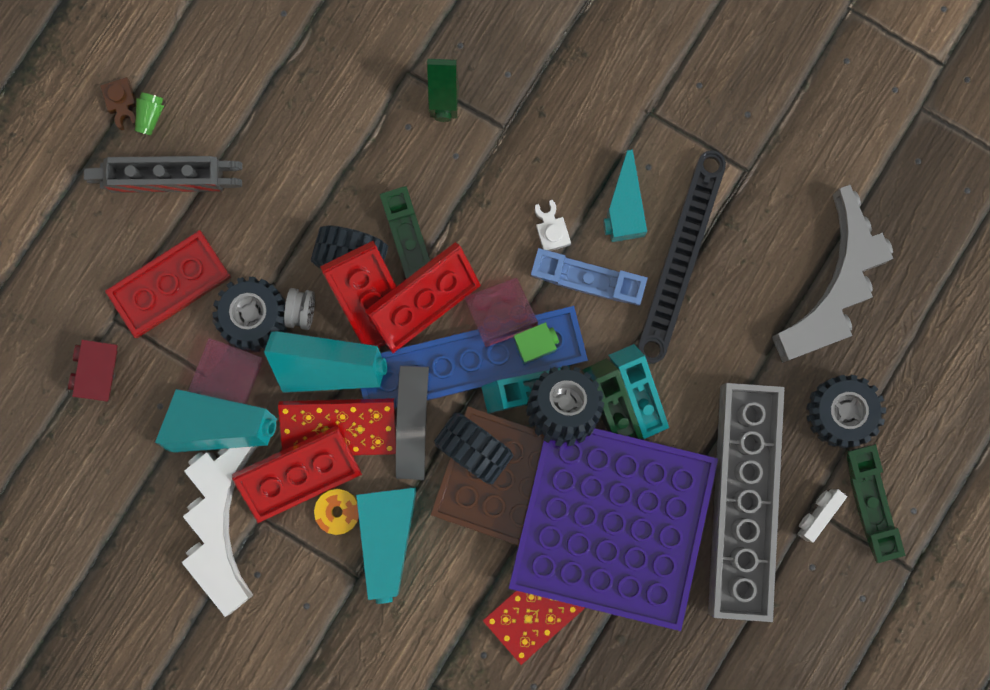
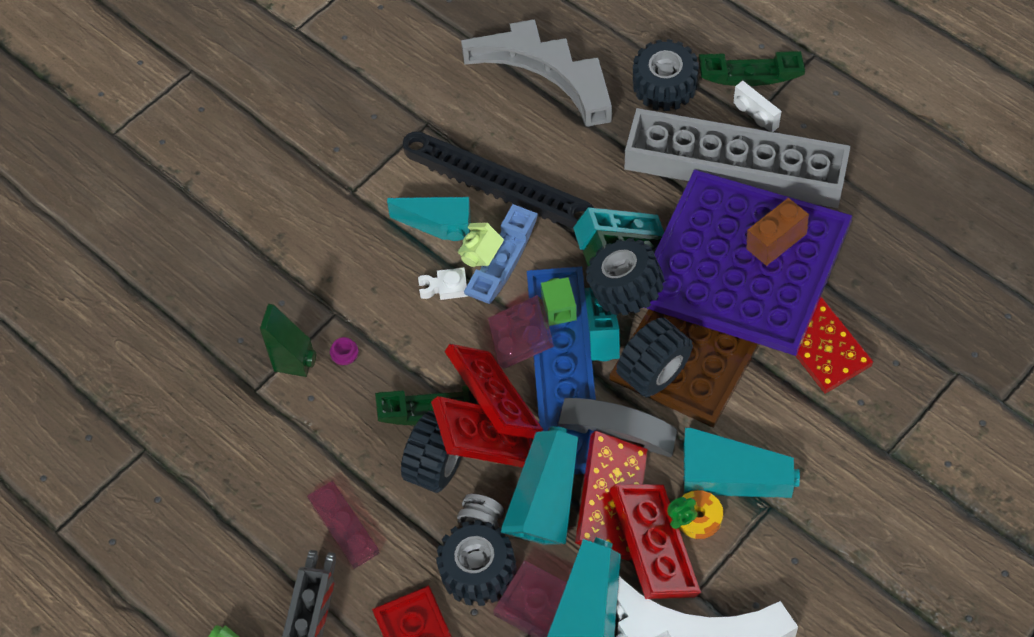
camera: 75 degrees left, 25 degrees down
(280, 186) = (343, 524): none -> clear pink plate
(326, 496) = (682, 511): none -> green plate
(458, 146) = (344, 351): none -> magenta plate
(593, 254) = (480, 245): none -> yellowish green brick
(640, 555) = (777, 231): none -> dark orange brick

